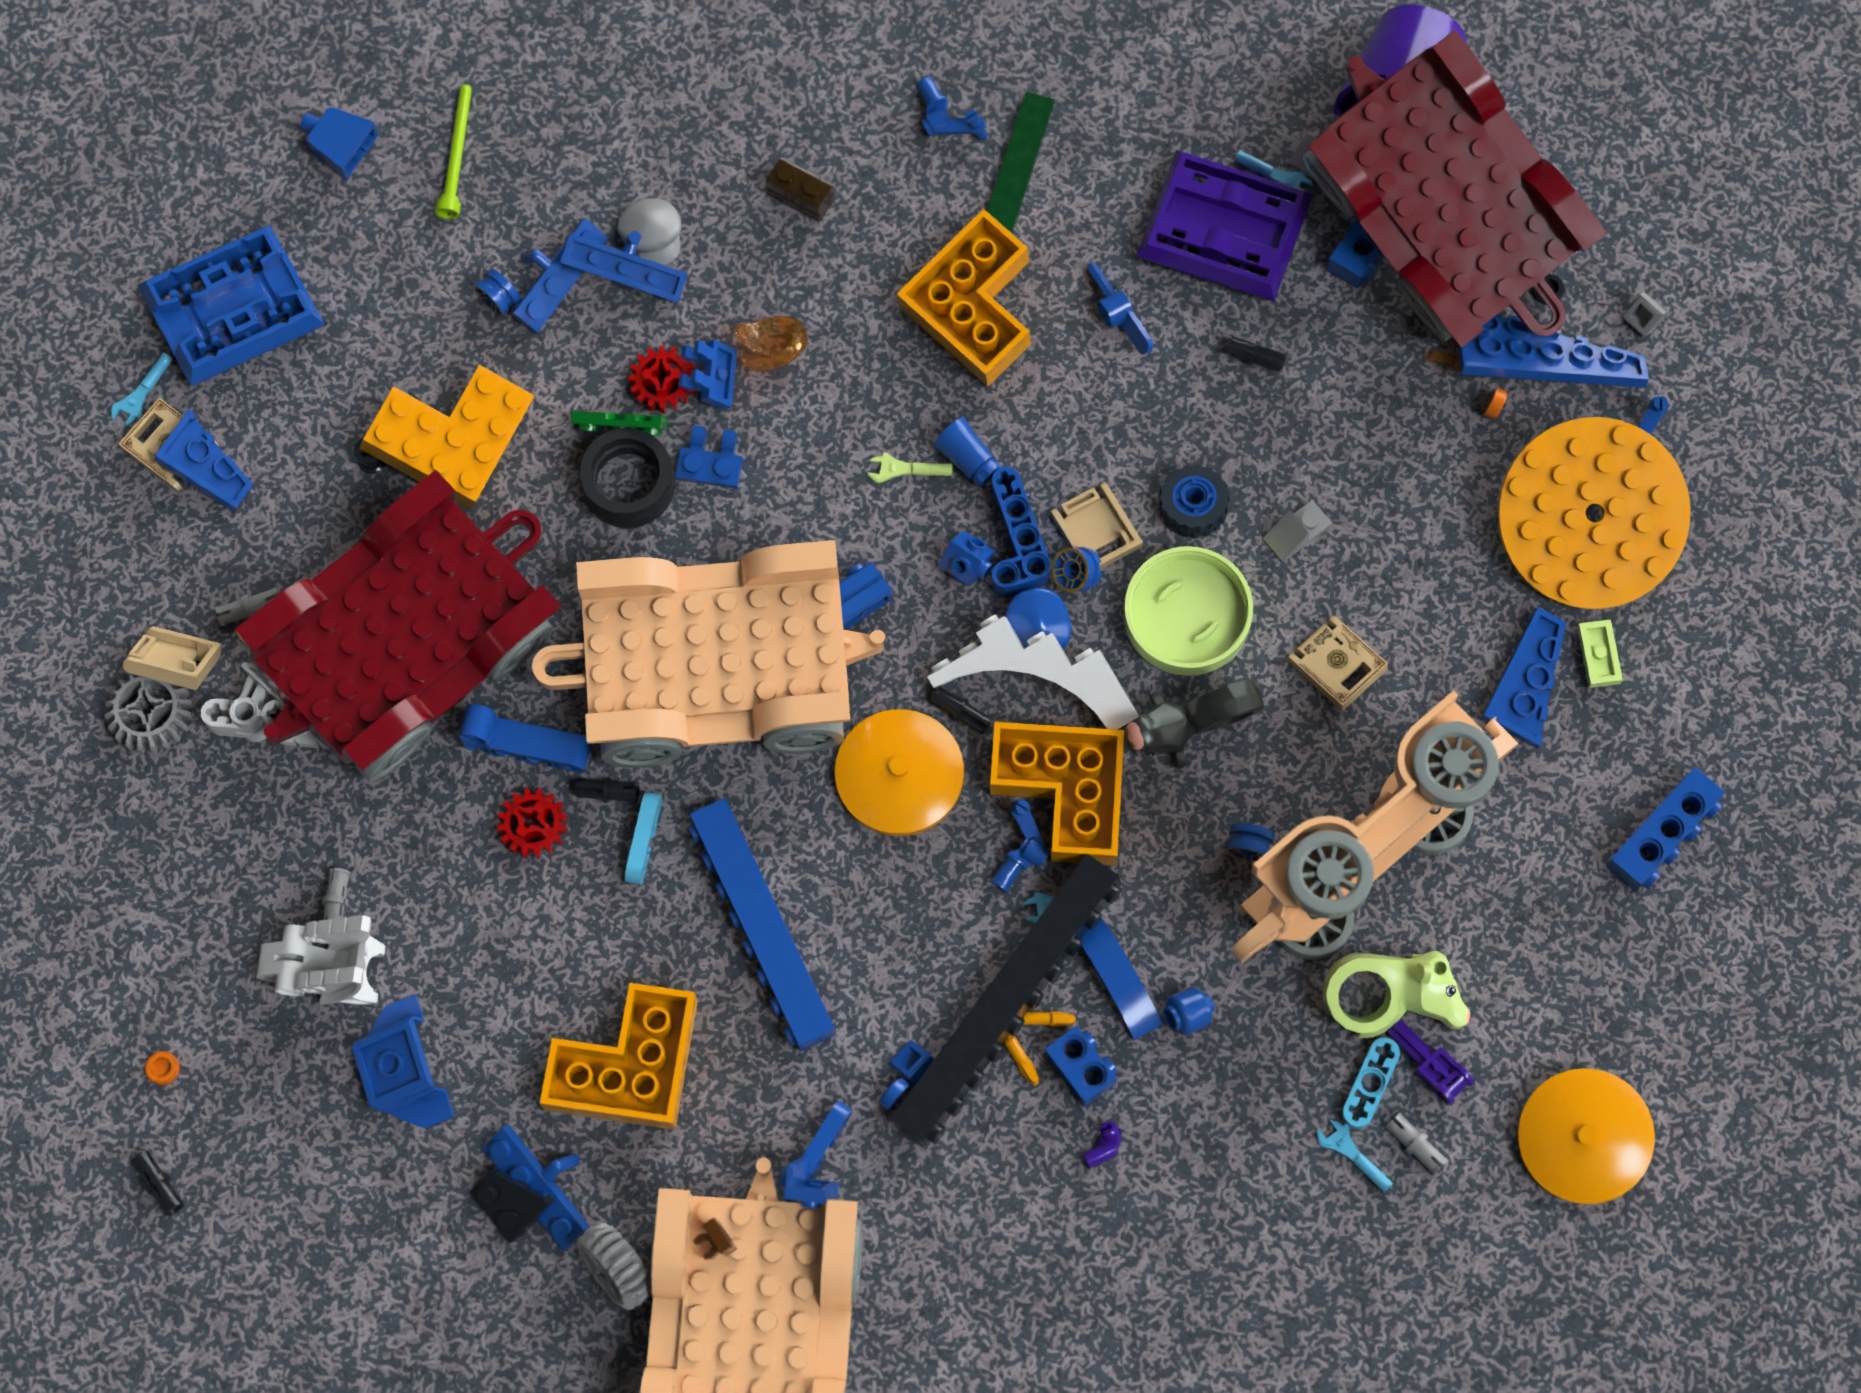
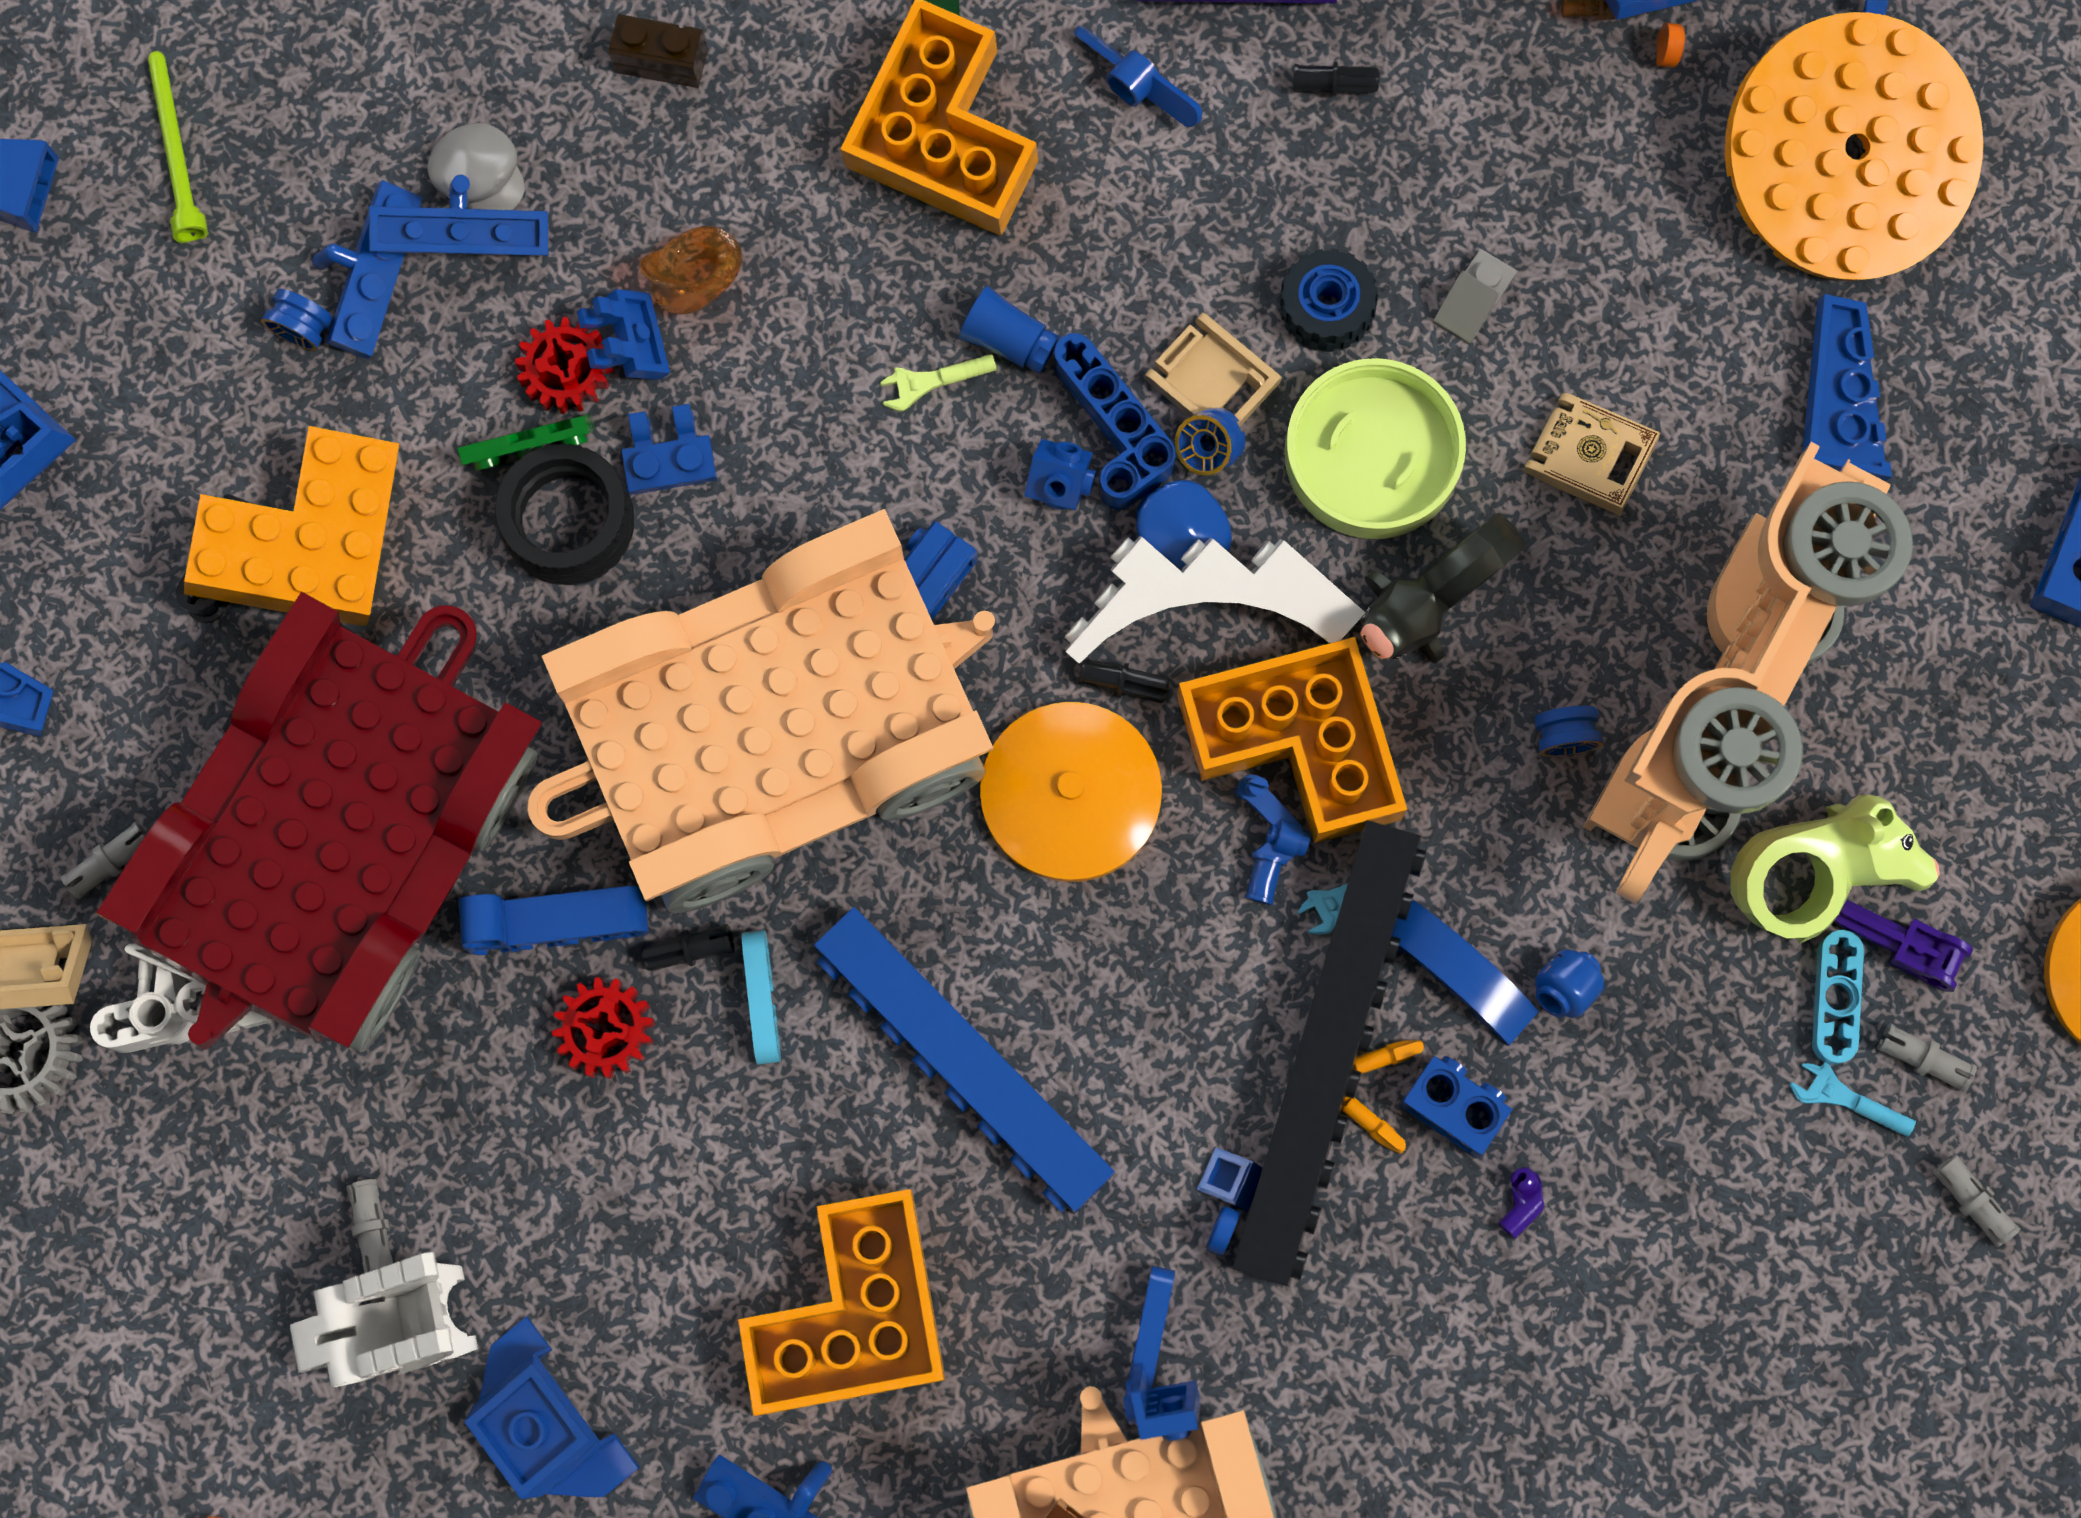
camera: 20 degrees left, 5 degrees up
(1414, 1250) = (1976, 1201): none -> light grey pin
(1599, 653) = (1922, 330): yellowish green plate -> none

